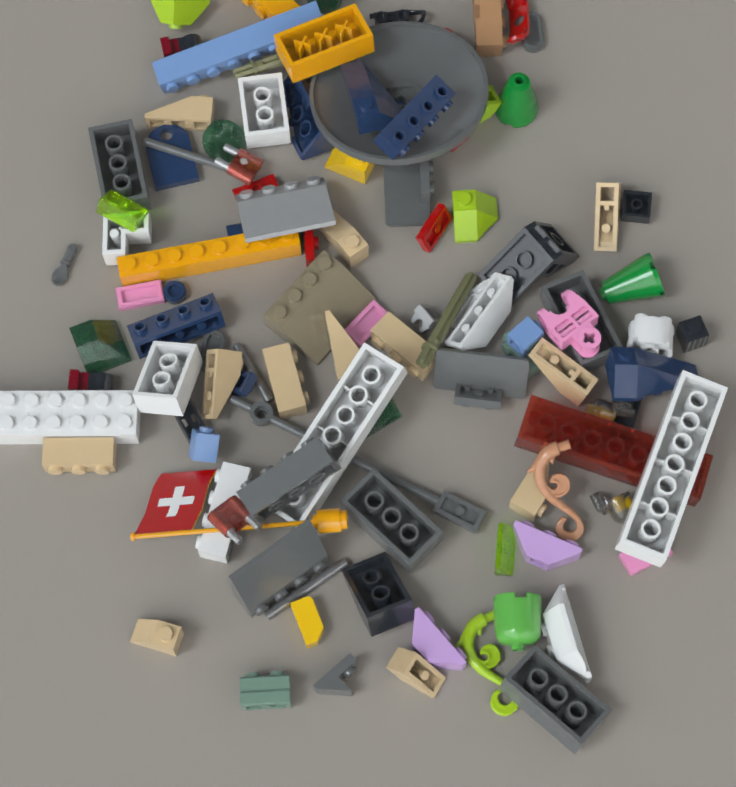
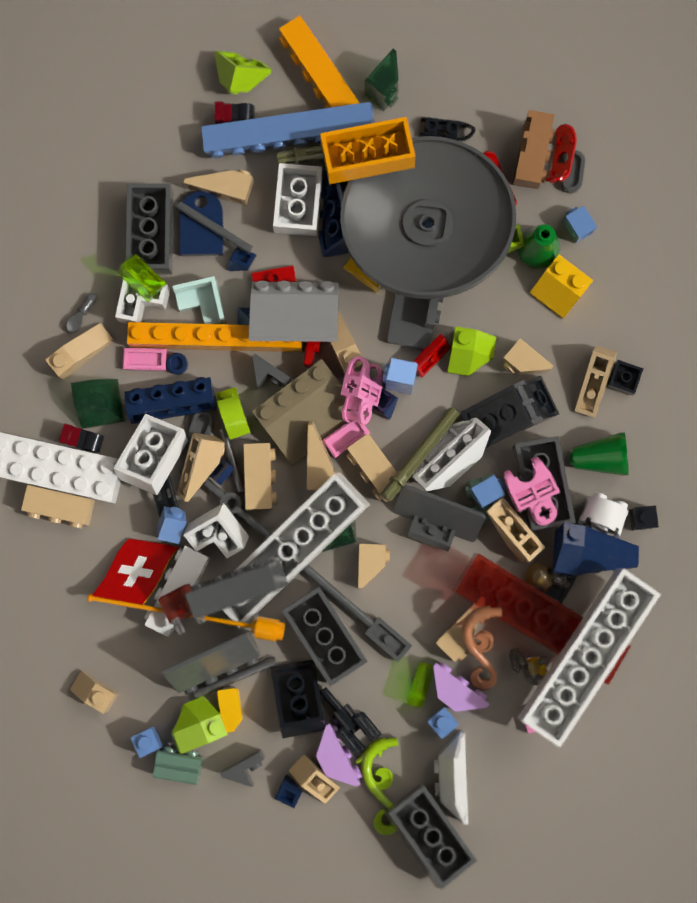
camera: 15 degrees right, 15 degrees up
(69, 301) = (79, 351): none -> tan slope
(183, 220) = (202, 294): none -> light aqua panel
(218, 181) = (240, 260): none -> dark blue slope
(219, 134) = (253, 221): clear green dish -> none
(226, 672) = (147, 741): none -> medium blue brick
(243, 166) = (266, 253): clear red piece -> none
(244, 324) = (232, 413): none -> lime brick
(256, 435) = (217, 527): none -> white brick
(268, 276) = (264, 370): none -> dark grey slope
(278, 643) = (197, 725): none -> lime slope
(369, 99) = (398, 224): dark blue wedge -> none
(371, 271) = (359, 398): none -> bright pink piece
(391, 694) = (288, 792): none -> dark blue slope
(398, 284) = (386, 404): none -> dark blue slope
(407, 246) = (400, 375): none -> light blue brick
(414, 117) = (435, 255): dark blue brick -> none
(422, 438) = (371, 561): none -> tan slope
(427, 315) = (403, 443): light grey tile -> none
(440, 604) = (350, 723): none -> black plant
(517, 619) = (415, 756): bright green cylinder -> none
(530, 208) = (525, 360): none -> tan slope
(537, 580) = (442, 722): none -> medium blue brick
(549, 135) = (561, 286): none -> yellow slope
(551, 75) = (579, 223): none -> medium blue brick

